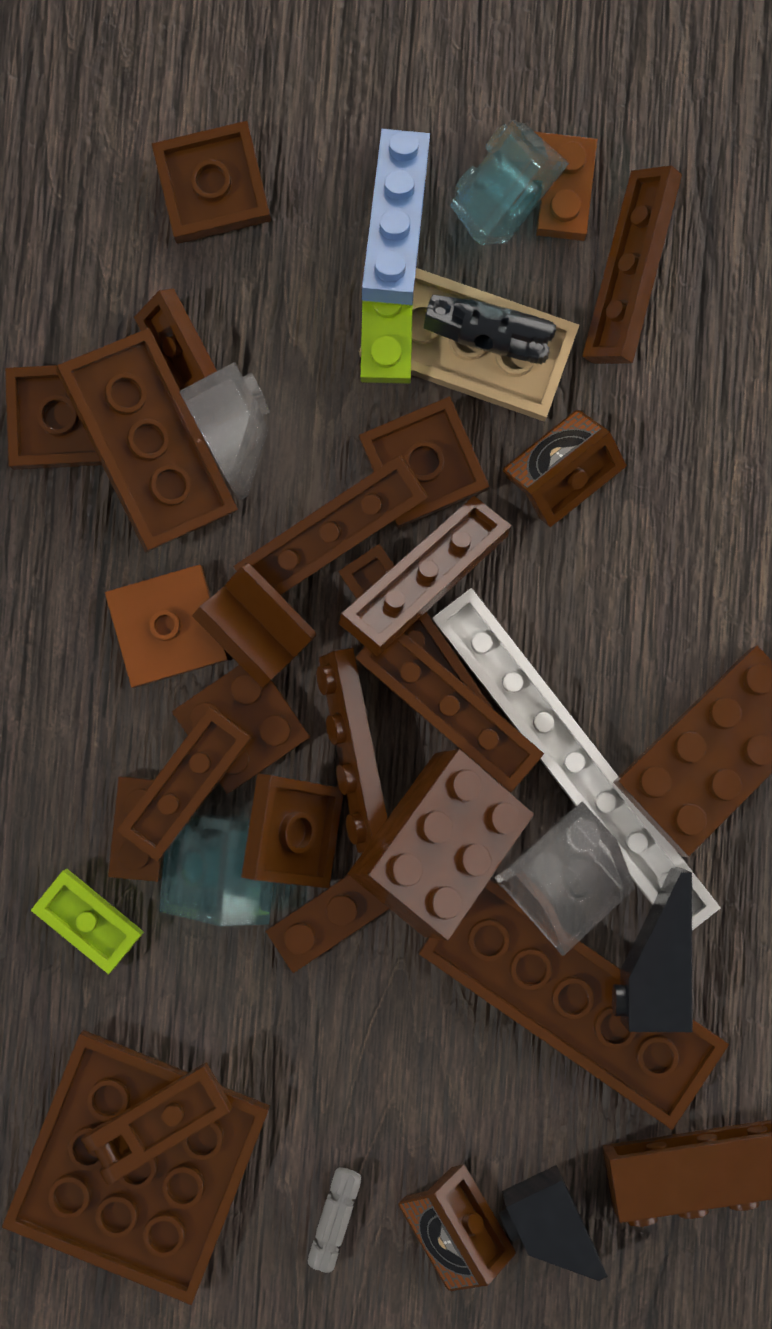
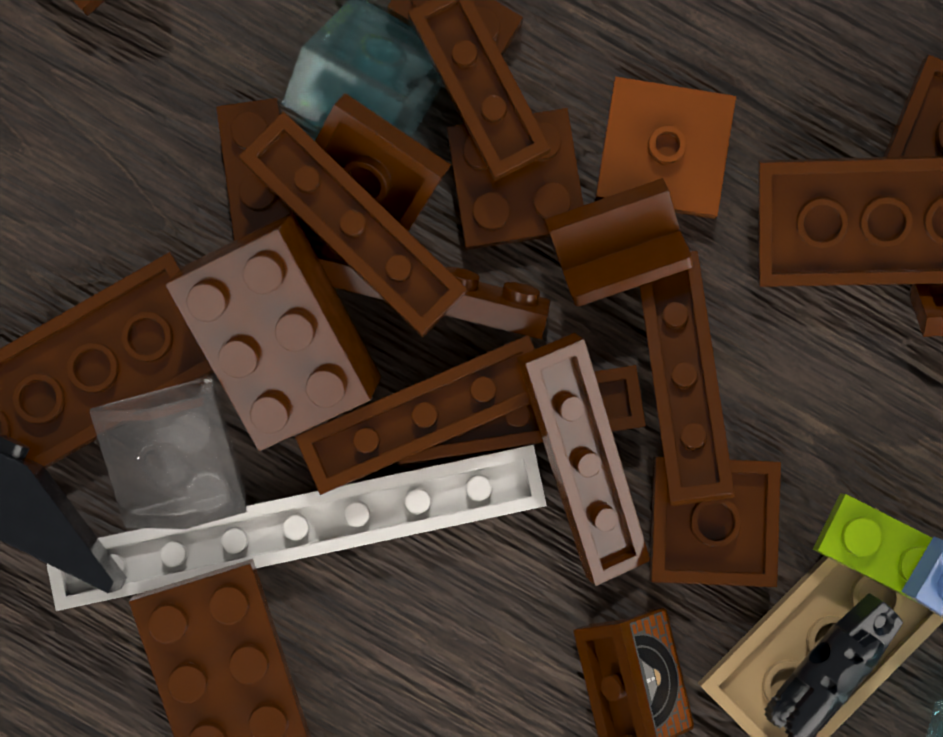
camera: 110 degrees right, 0 degrees up
(231, 420) = (859, 320): clear slope -> none
(335, 825) = (353, 224): none -> reddish brown plate

